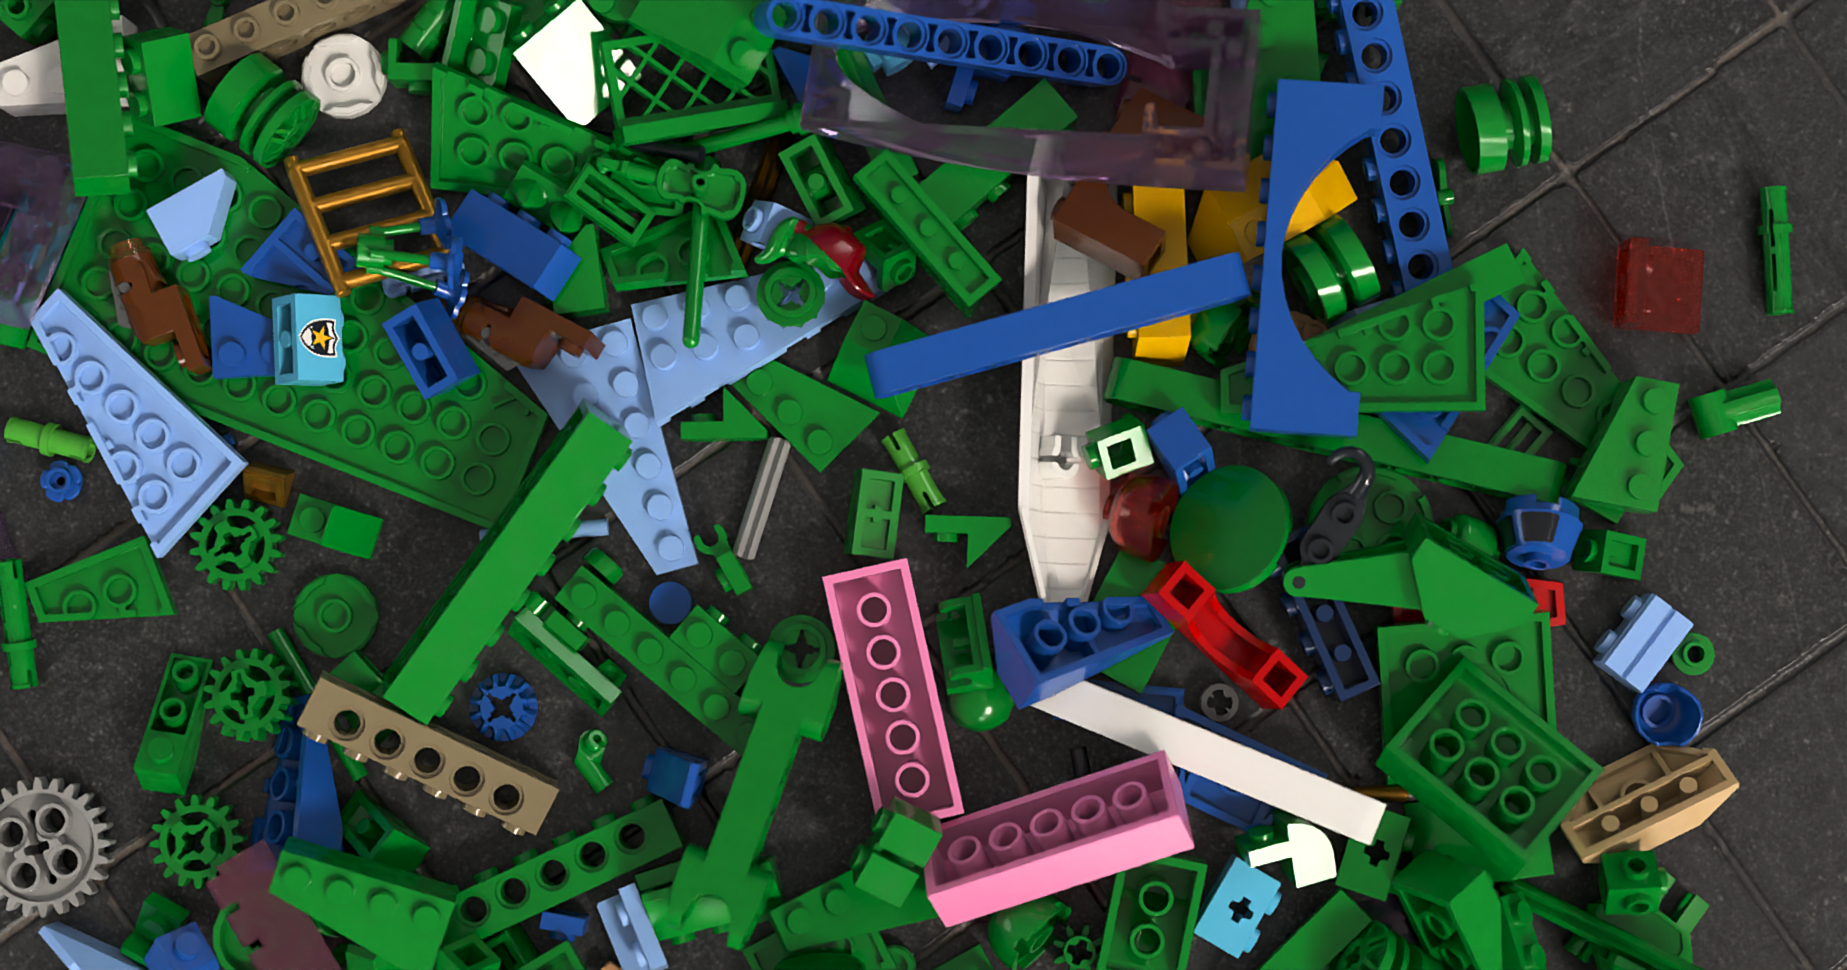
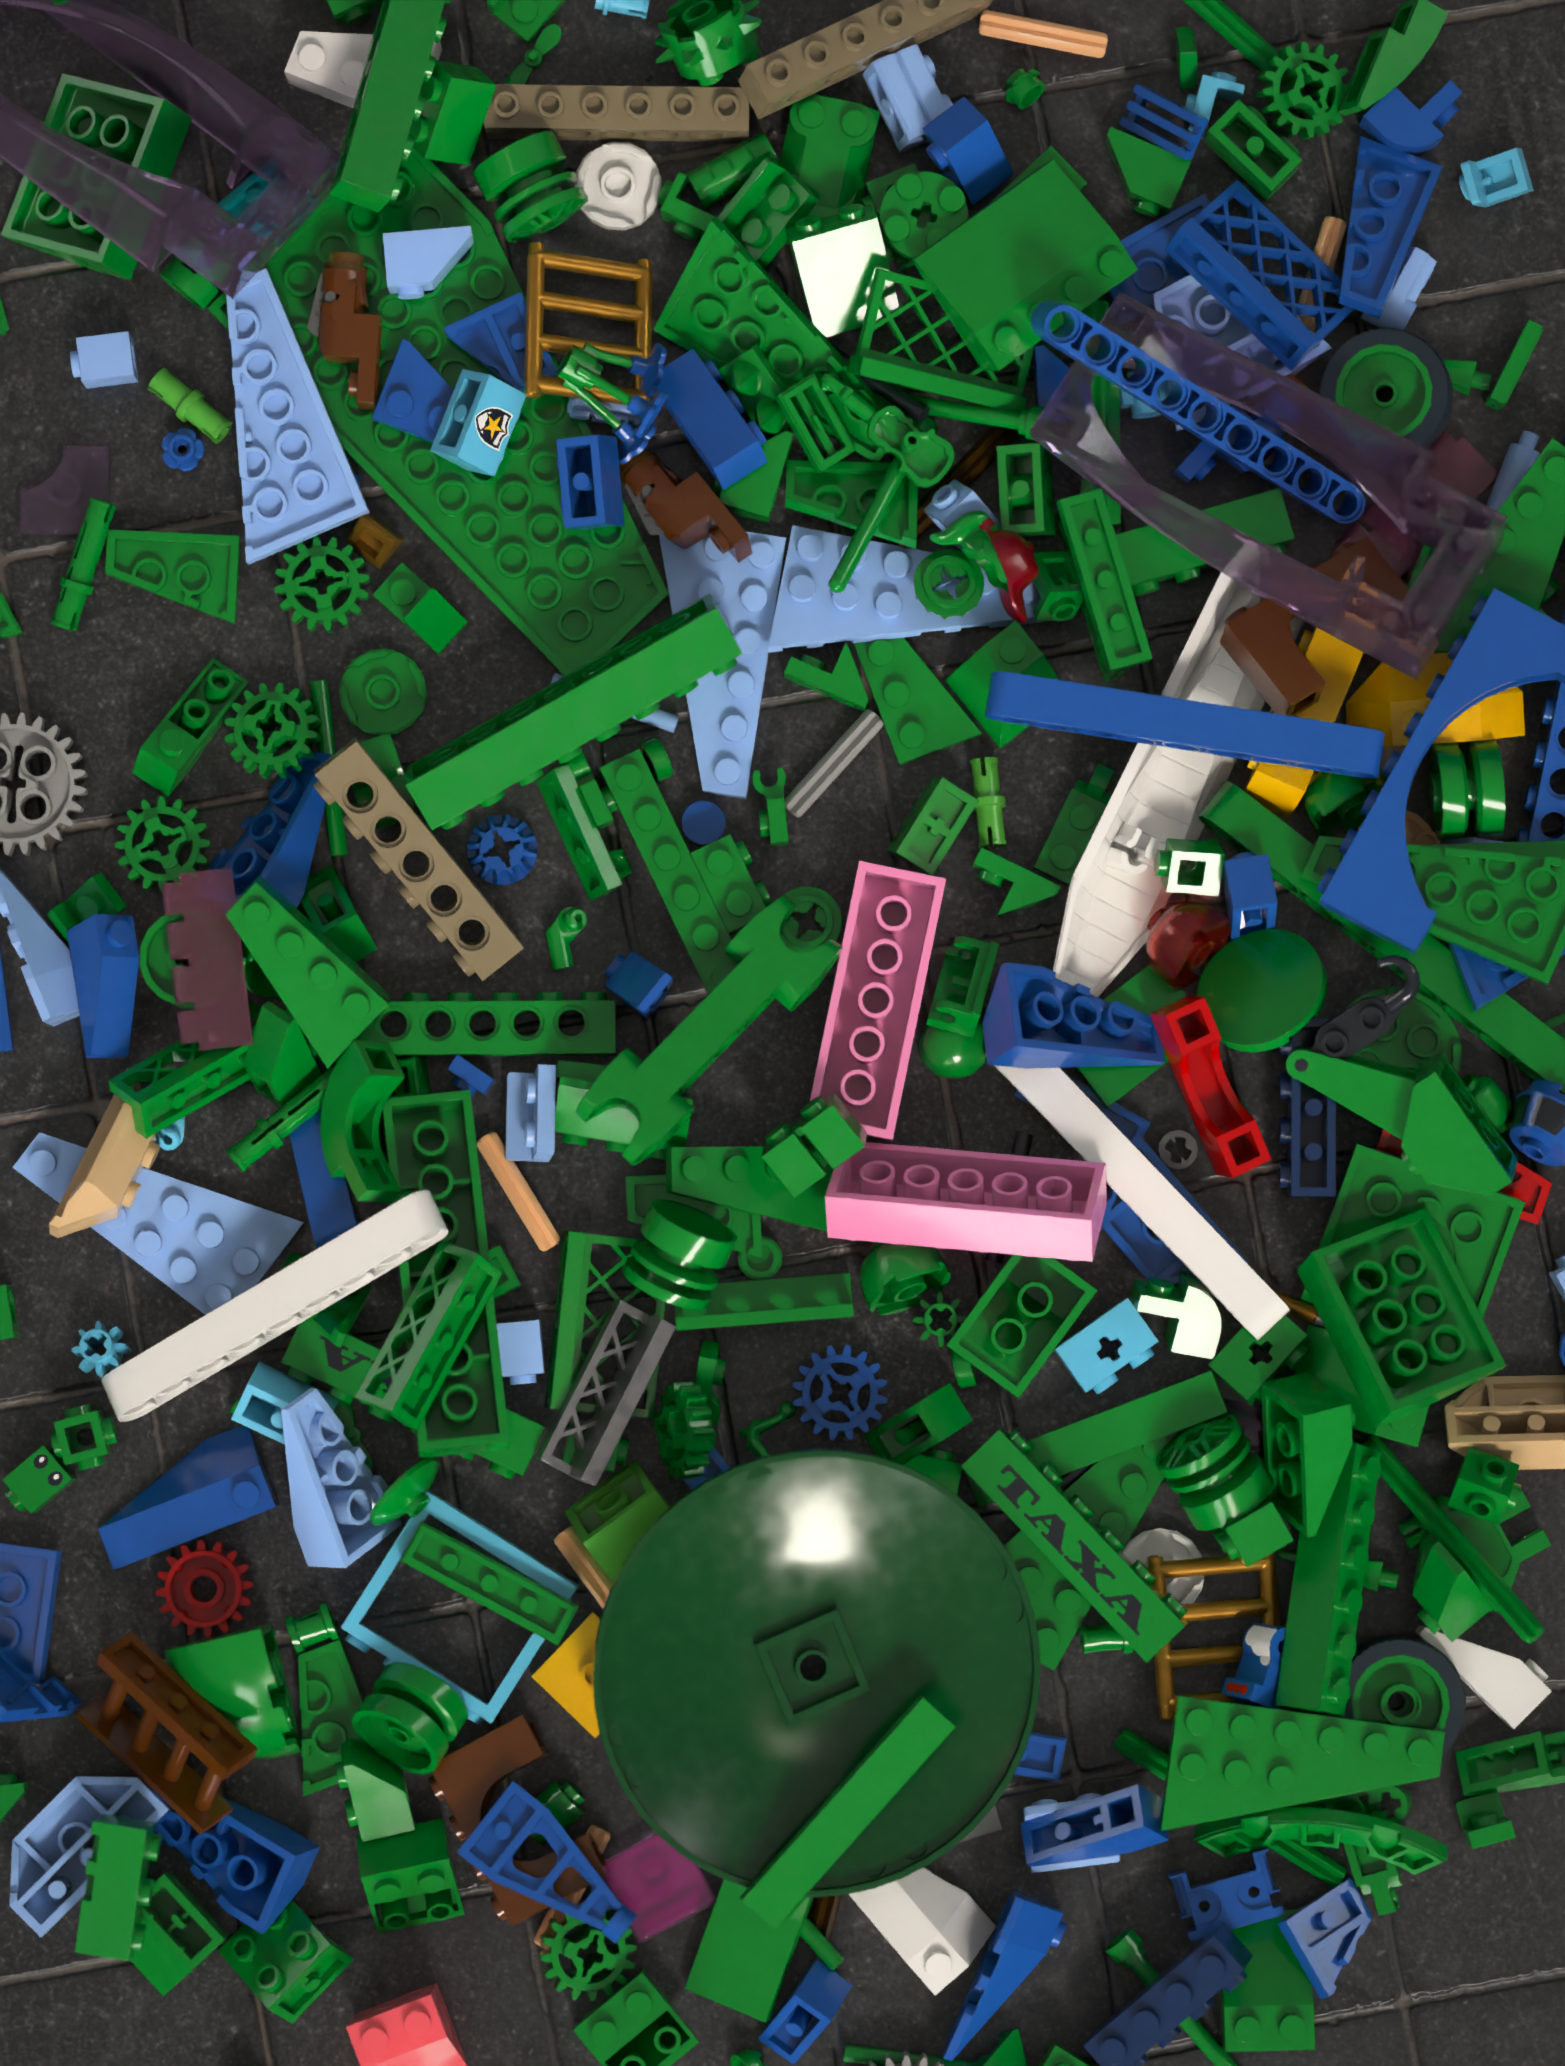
camera: 20 degrees right, 0 degrees up
(1000, 457) = (1075, 826): none -> green hinge

